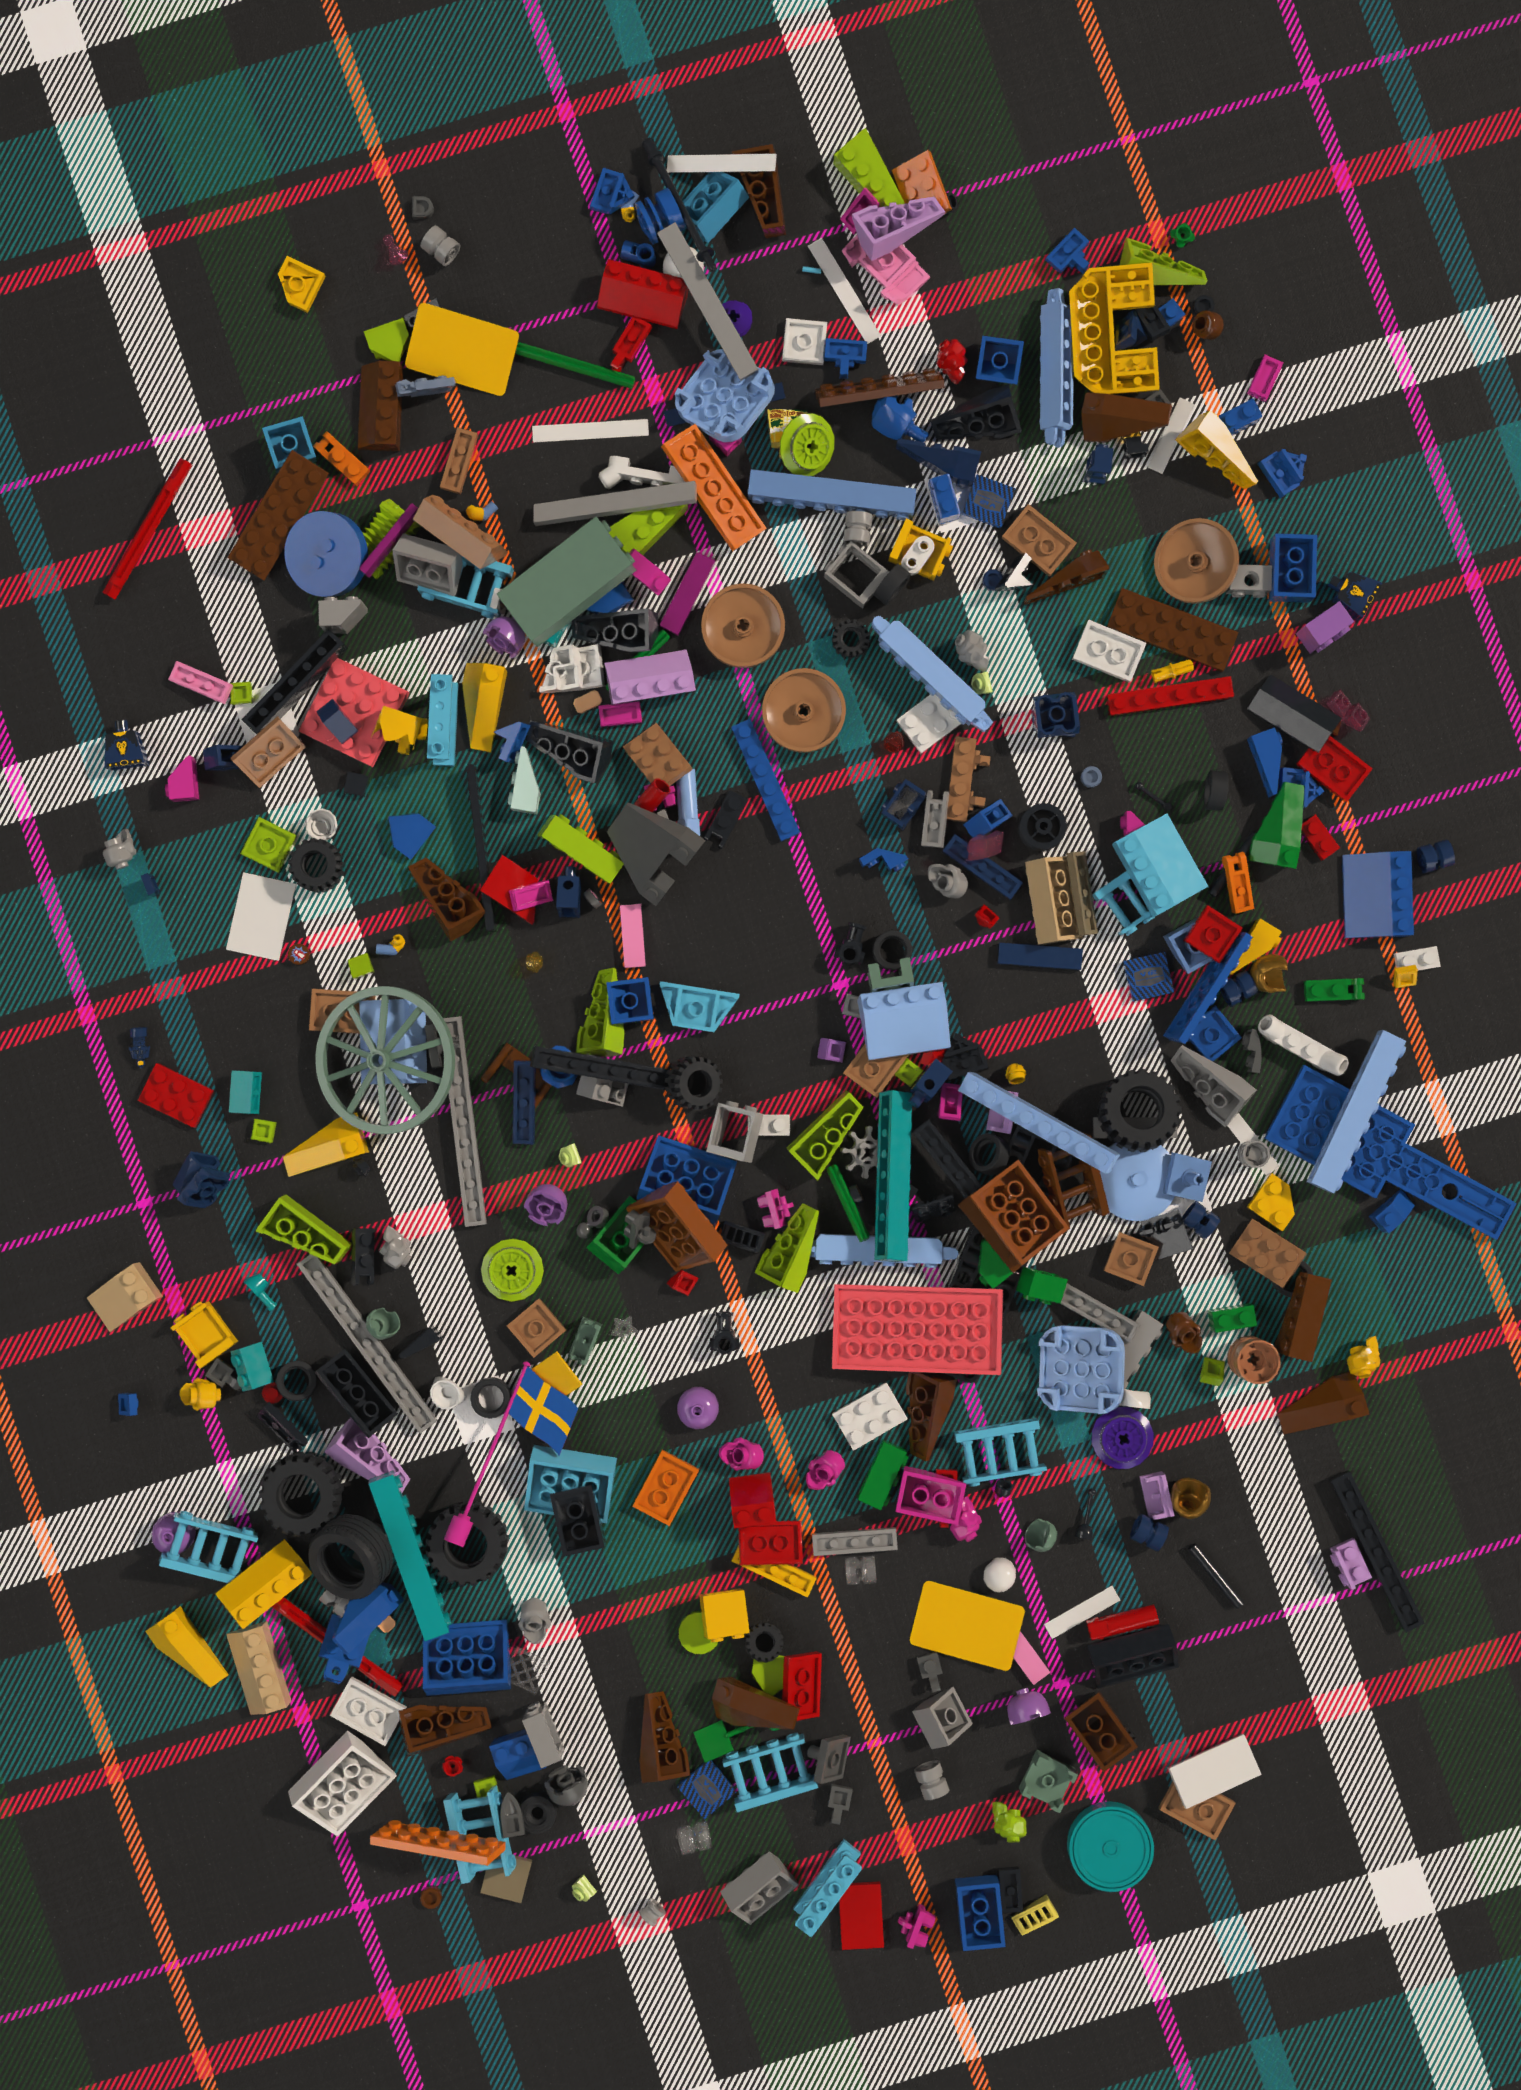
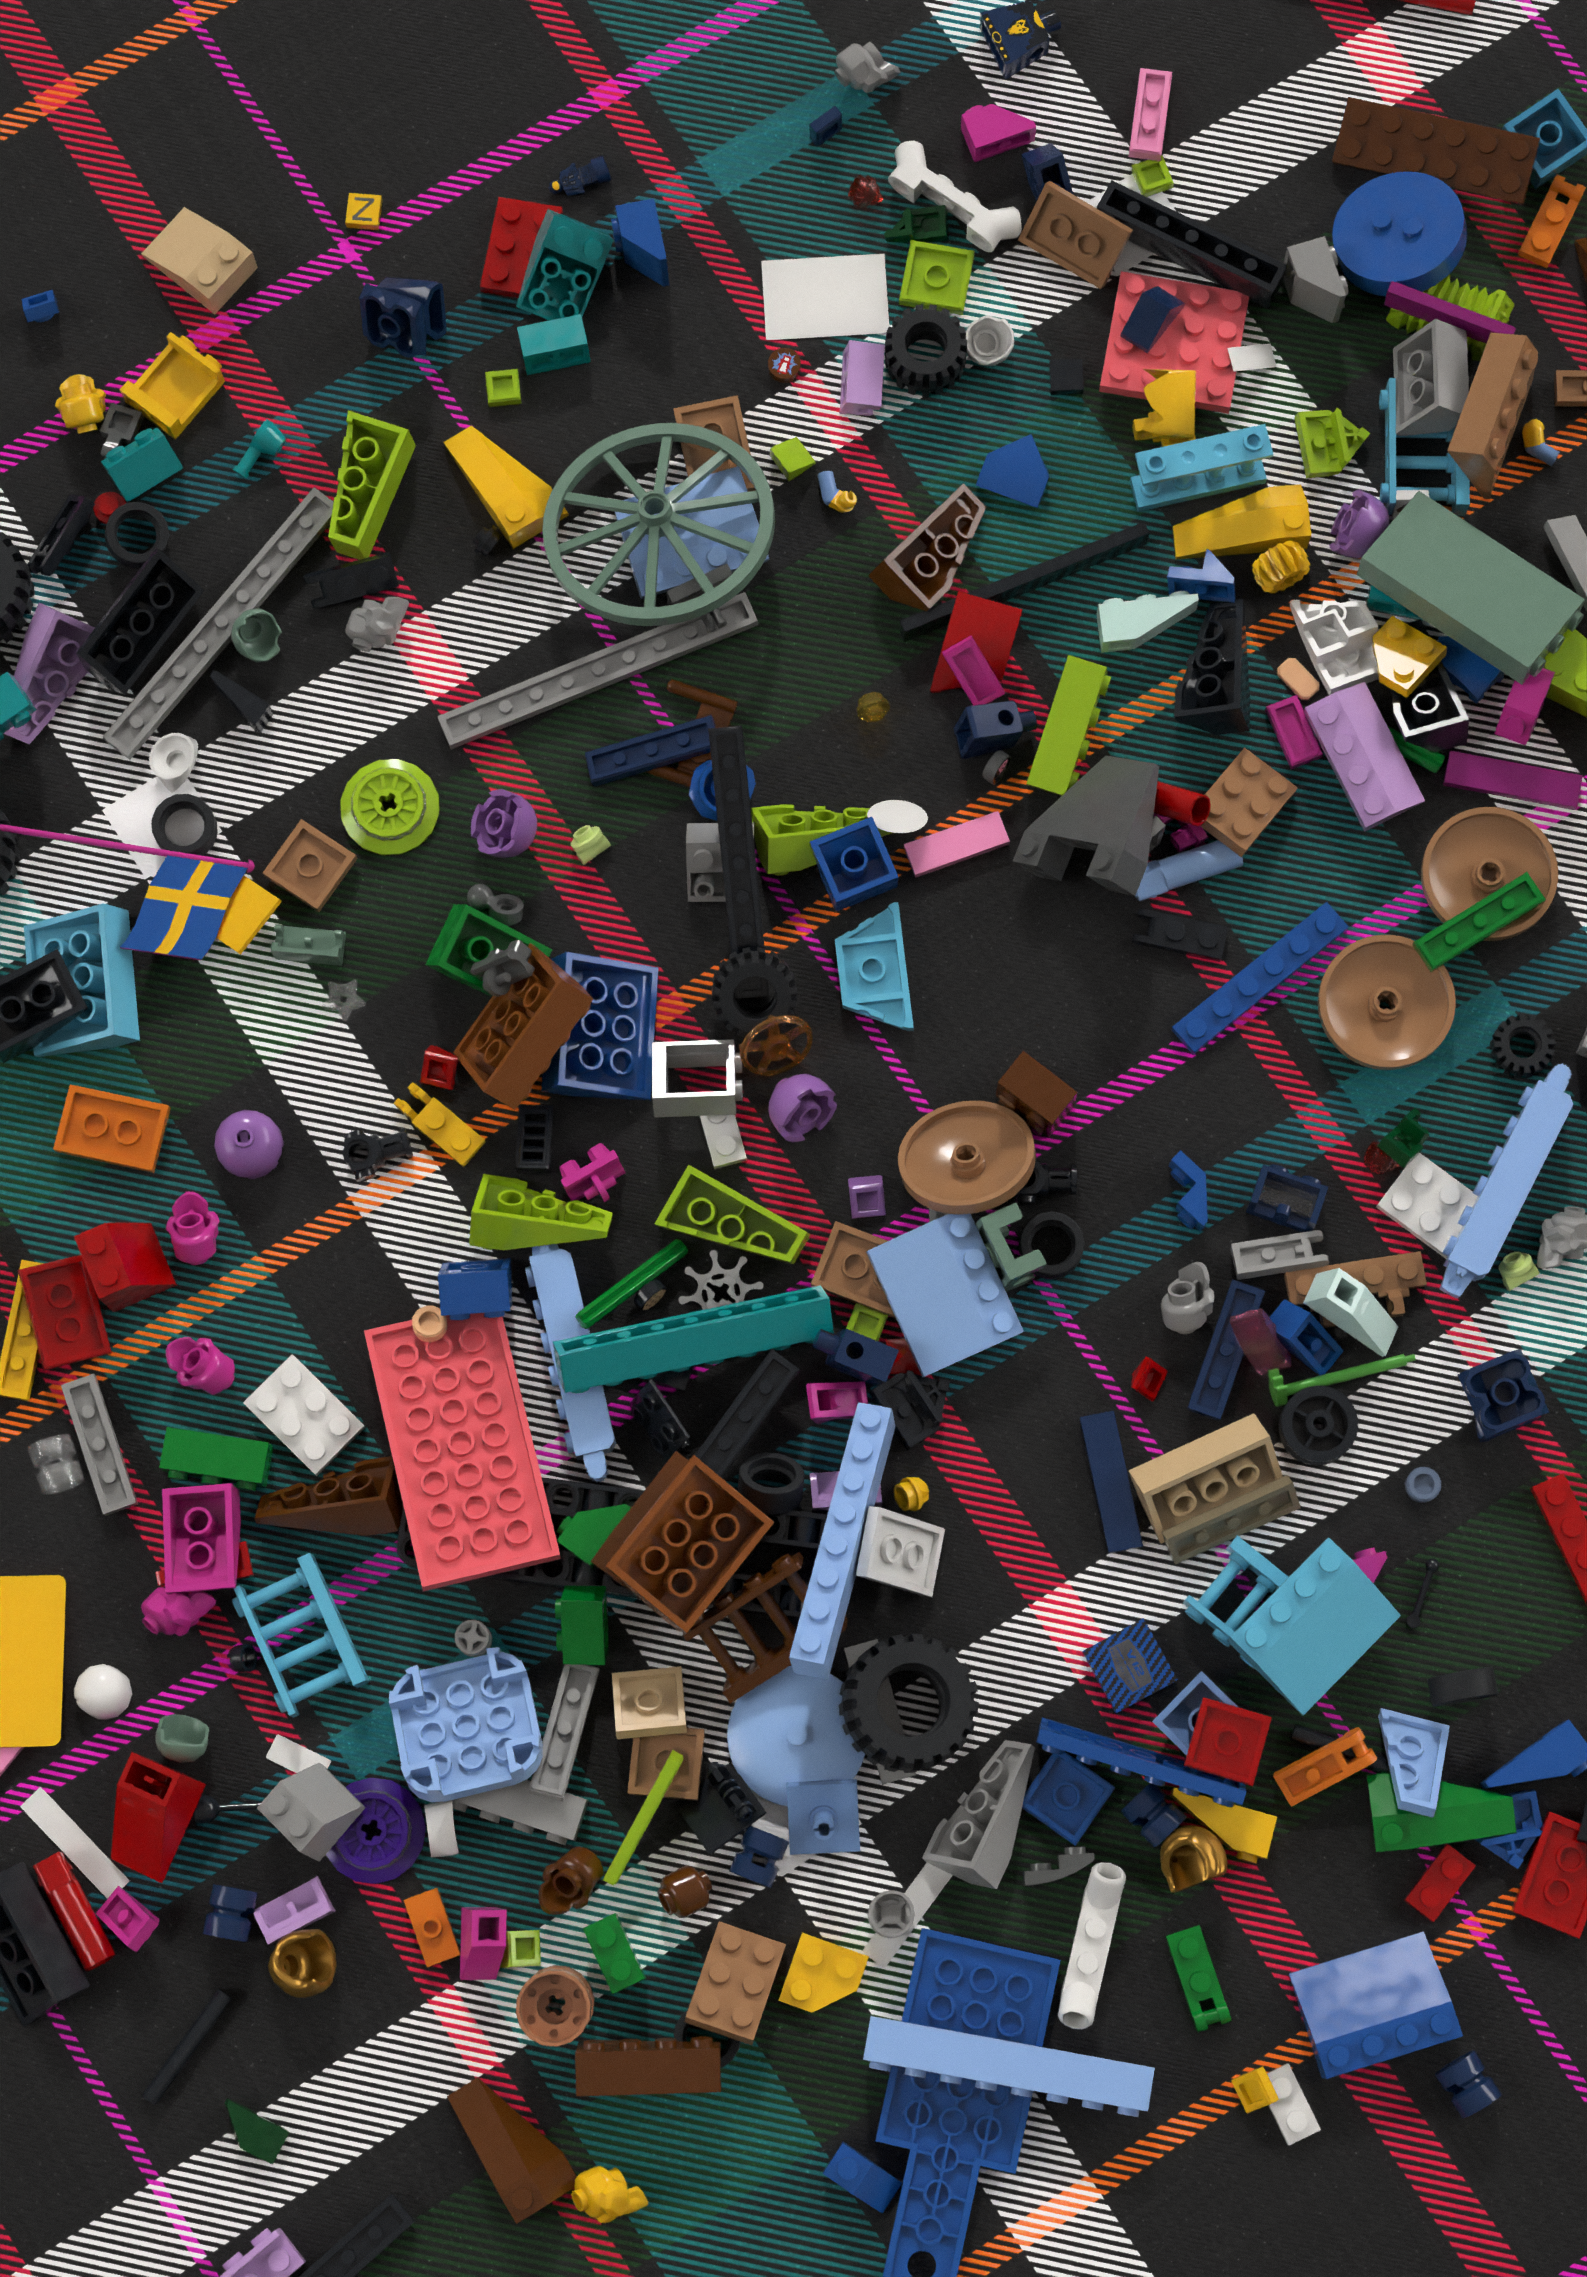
camera: 80 degrees right, 10 degrees down
(122, 1186) = (363, 211): none -> yellow tile
(194, 1020) = (640, 238): none -> blue slope
(197, 1072) = (563, 267): none -> teal slope
(200, 840) = (984, 226): none -> white plate
(200, 873) = (864, 191): none -> clear red plate
(232, 844) = (921, 225): none -> dark green slope
(322, 909) = (861, 378): none -> lavender hinge
(378, 668) = (1251, 357): none -> white sticker
(443, 638) = (1327, 441): none -> lime slope
(517, 691) = (1281, 567): none -> yellow gear
(594, 634) = (1404, 655): none -> yellow plate
(607, 966) = (898, 816): none -> white sticker
(719, 1289) = (442, 1126): none -> yellow hinge
(729, 1078) = (777, 1045): none -> clear orange wheel
(767, 1074) = (800, 1105): none -> medium lavender cylinder
(772, 641) = (1479, 922): none -> green tile
(803, 933) = (1035, 1095): none -> reddish brown brick
(824, 1296) = (475, 1288): none -> blue slope
(829, 985) = (967, 1157): none -> medium nougat dish
(839, 1329) = (429, 1324): none -> light nougat tile
(888, 724) = (1405, 1140): none -> dark green slope
(982, 787) = (1352, 1309): none -> light aqua slope
(1015, 843) = (1280, 1391): none -> bright green piece
(1032, 1353) = (470, 1633): none -> light grey wheel
(1051, 1090) = (900, 1551): none -> white plate
(1069, 1470) = (293, 1755): none -> white sticker
(1081, 1563) = (151, 1815): none -> red slope
(1095, 1259) = (649, 1702): none -> tan plate
(1104, 1471) = (311, 1810): none -> light grey slope
(1136, 1592) = (128, 1918): none -> dark pink slope
(1162, 1280) = (643, 1818): none -> lime tile
(1187, 1418) = (432, 1927): none -> orange plate
(1204, 1391) = (482, 1942): none -> dark pink slope
(1207, 1268) = (684, 1891): none -> reddish brown head
(1249, 830) = (1415, 1759): none -> light blue wing
(1275, 1549) = (256, 2133): none -> dark green slope

